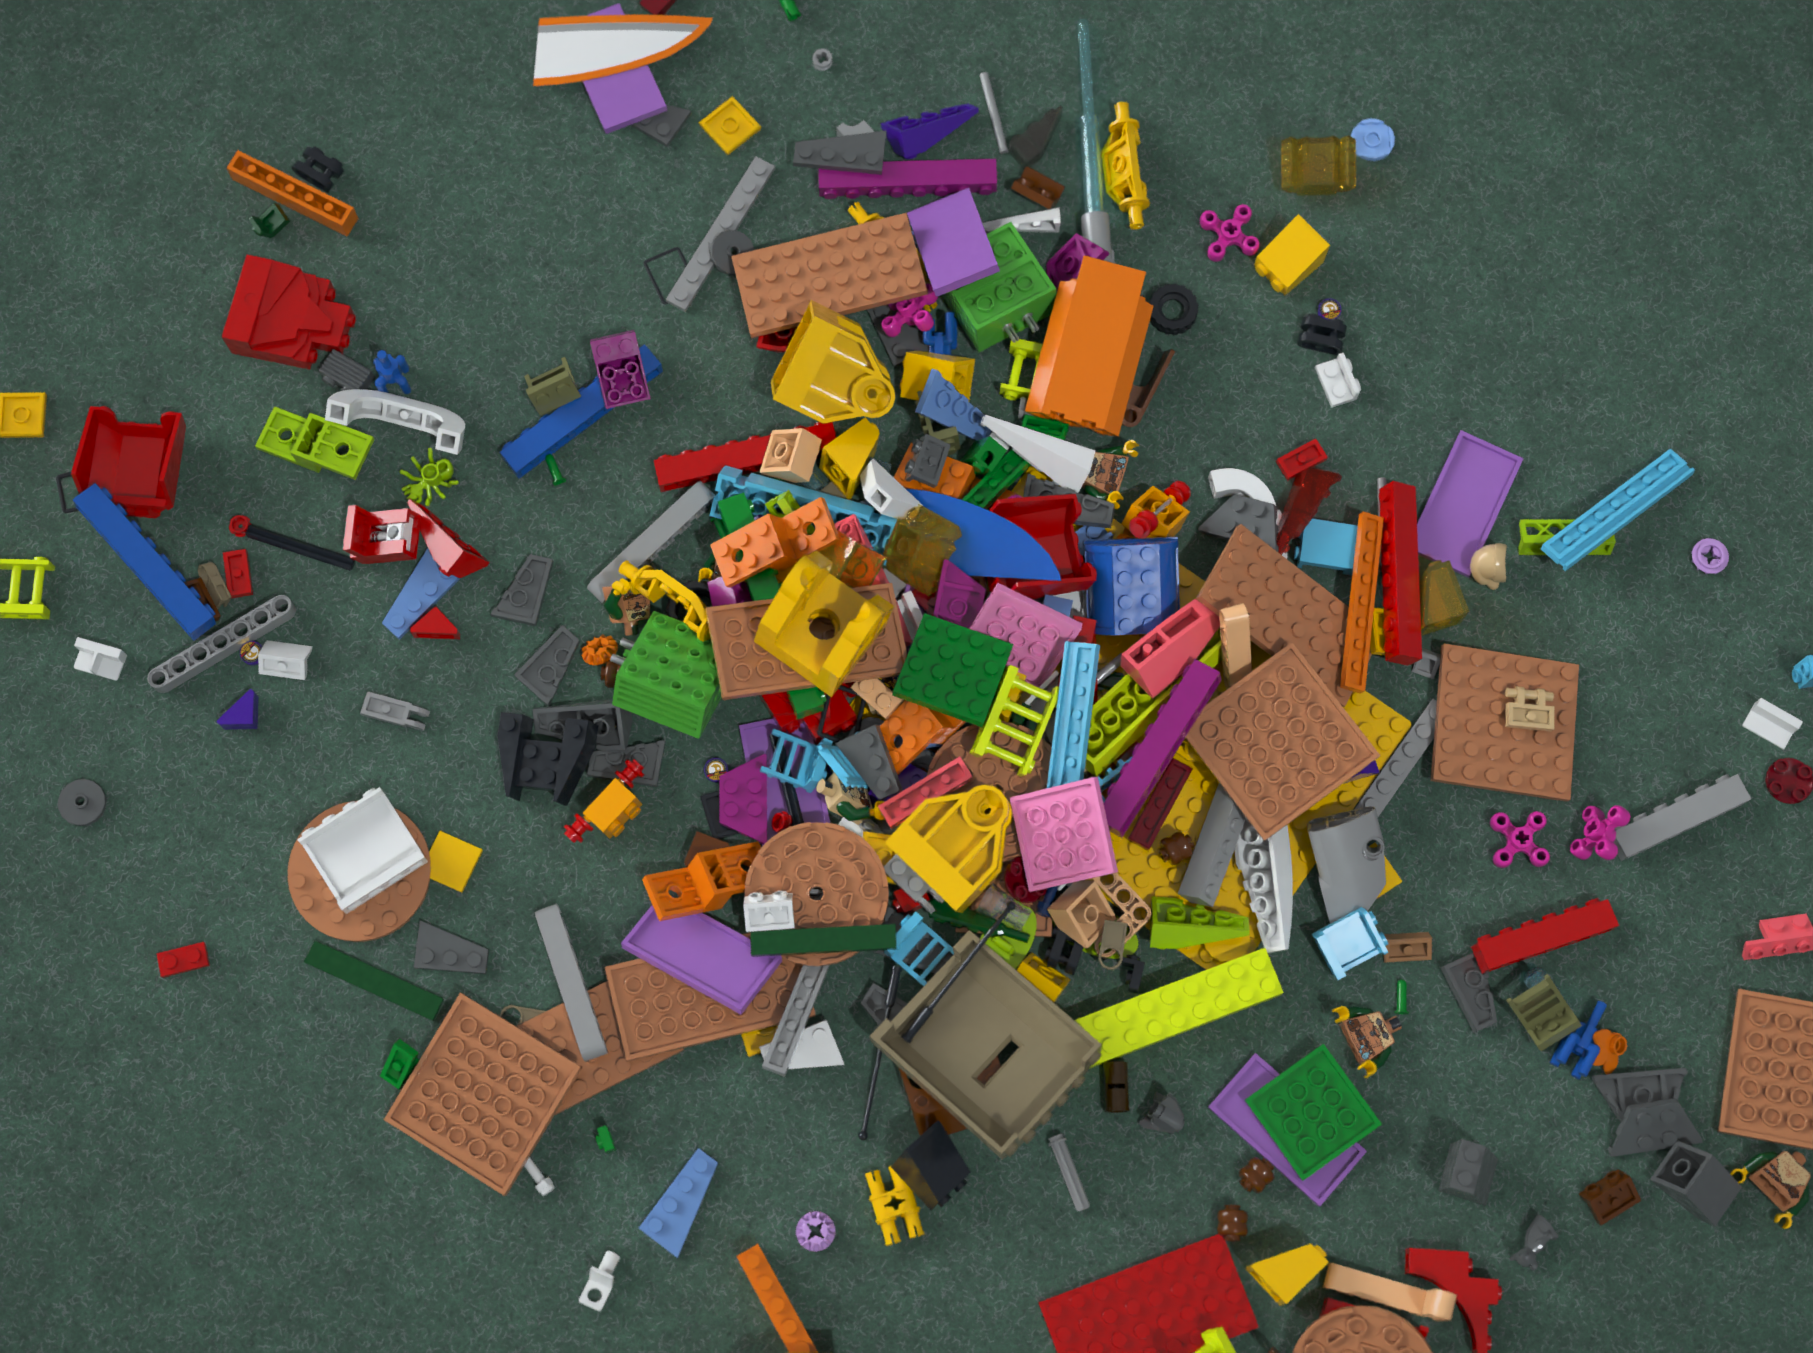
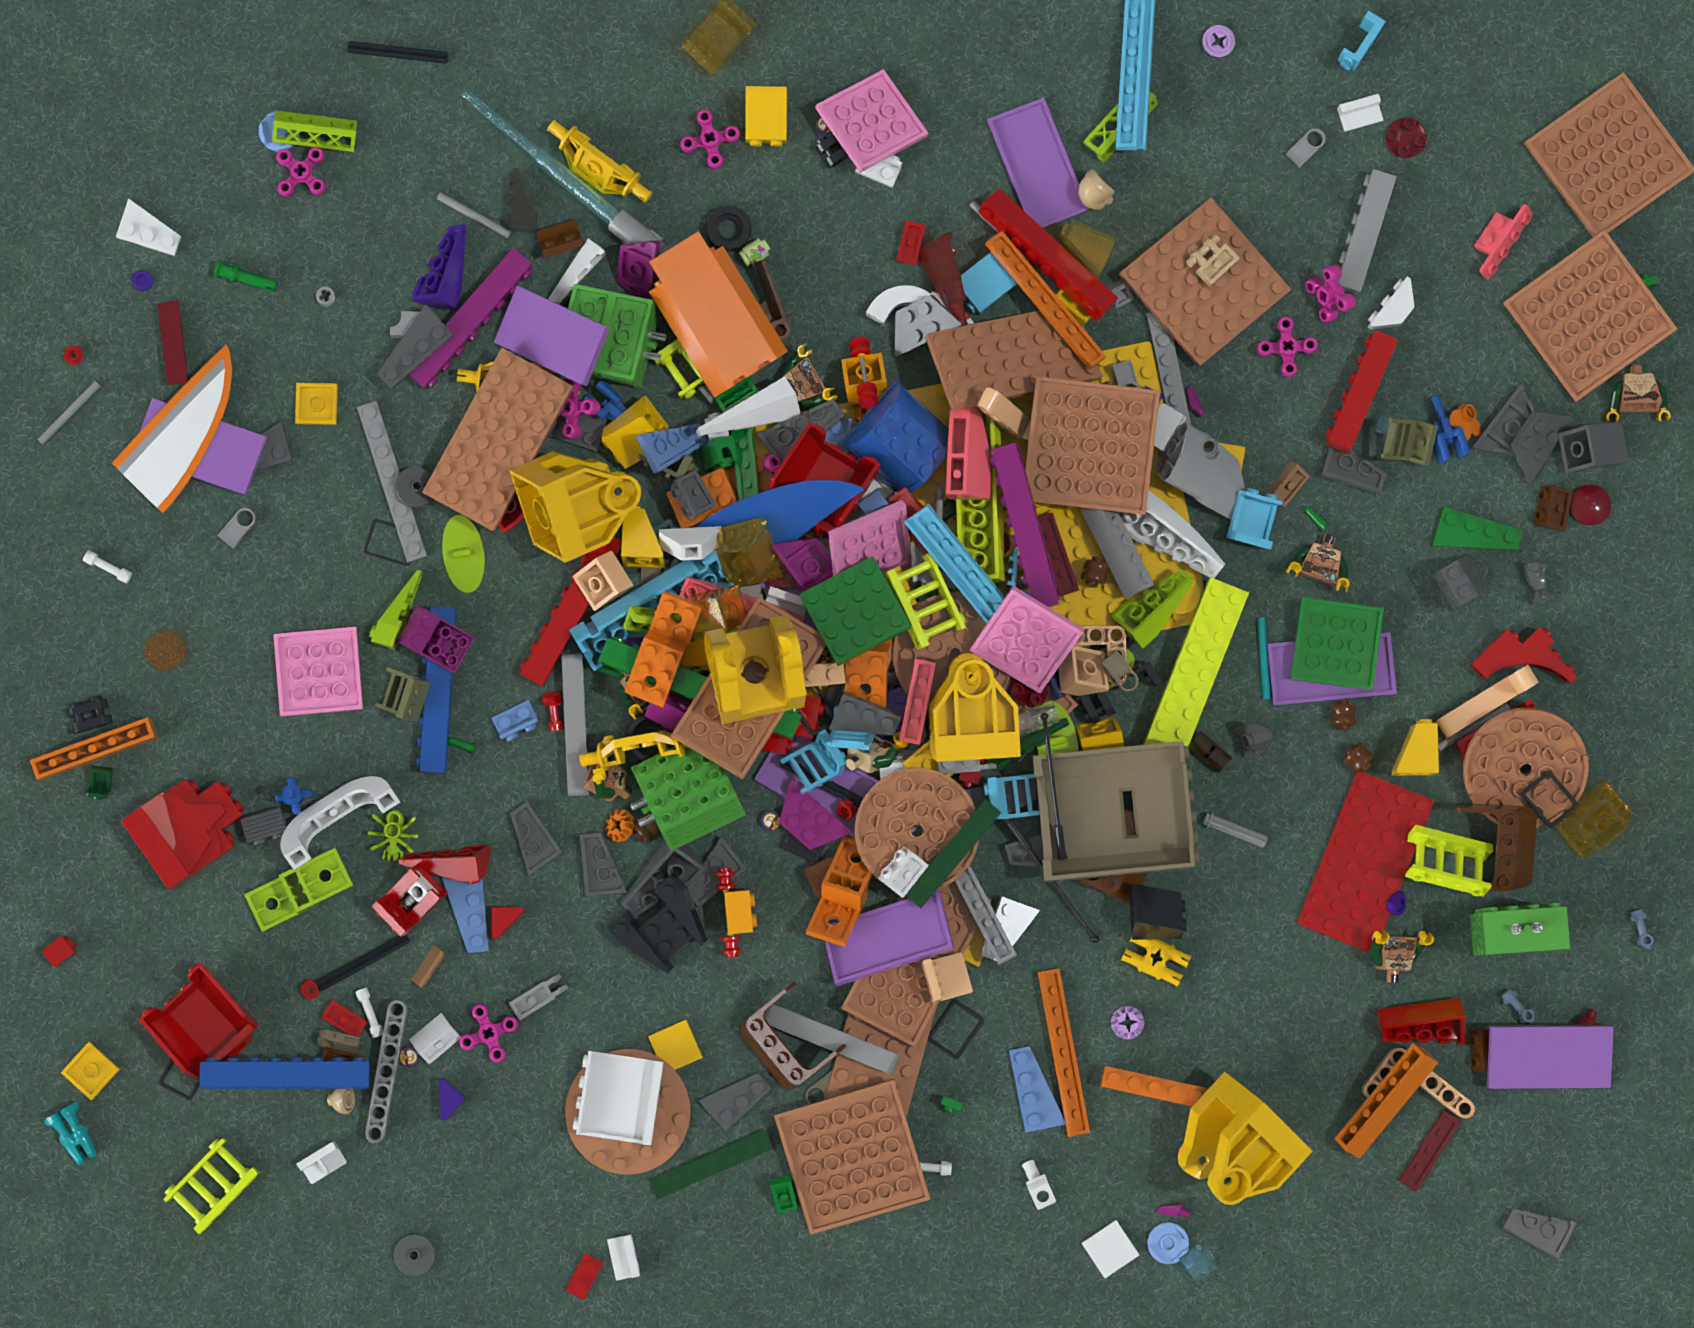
camera: 50 degrees left, 10 degrees up
(101, 307) = (60, 951): none -> red brick
(166, 630) = (342, 1100): none -> tan brick
(228, 978) = (623, 1257): none -> white panel
(271, 571) = (363, 996): none -> white bar
(335, 702) = (485, 1024): none -> dark pink gear
(342, 603) = (428, 966): none -> medium nougat slope
(424, 182) = (165, 650): none -> clear orange tile
(449, 69) = (122, 574): none -> white bar
(512, 308) = (318, 671): none -> bright pink plate
(517, 942) = (774, 1051): none -> windscreen
(568, 151) = (233, 531): none -> light grey piece
(612, 493) = (515, 720): none -> medium blue bracket
(614, 323) = (395, 617): none -> lime wedge
(654, 506) = (553, 699): none -> red bar
(678, 1105) = (968, 1039): none -> black piece
(711, 1033) = (947, 977): none -> light nougat bracket
(713, 337) = (463, 553): none -> lime shield
(738, 1198) = (1063, 1052): none -> orange plate
(1175, 342) = (754, 252): none -> yellowish green brick
(1240, 1061) = (1263, 654): none -> teal bar
(1327, 1293) = (1472, 727): none -> light grey bar
(1354, 794) = (1167, 425): none -> white panel
(1367, 722) = (1125, 374): none -> light grey piece
(1369, 339) = (871, 120): none -> bright pink plate
(1397, 805) = (1194, 401): none -> magenta bar
(1519, 1142) = (1469, 531): none -> green wing
(1641, 900) = (1395, 307): none -> white slope
(1644, 1228) = (1590, 505): none -> dark red dish
(1693, 705) = (1303, 150): none -> light grey piece

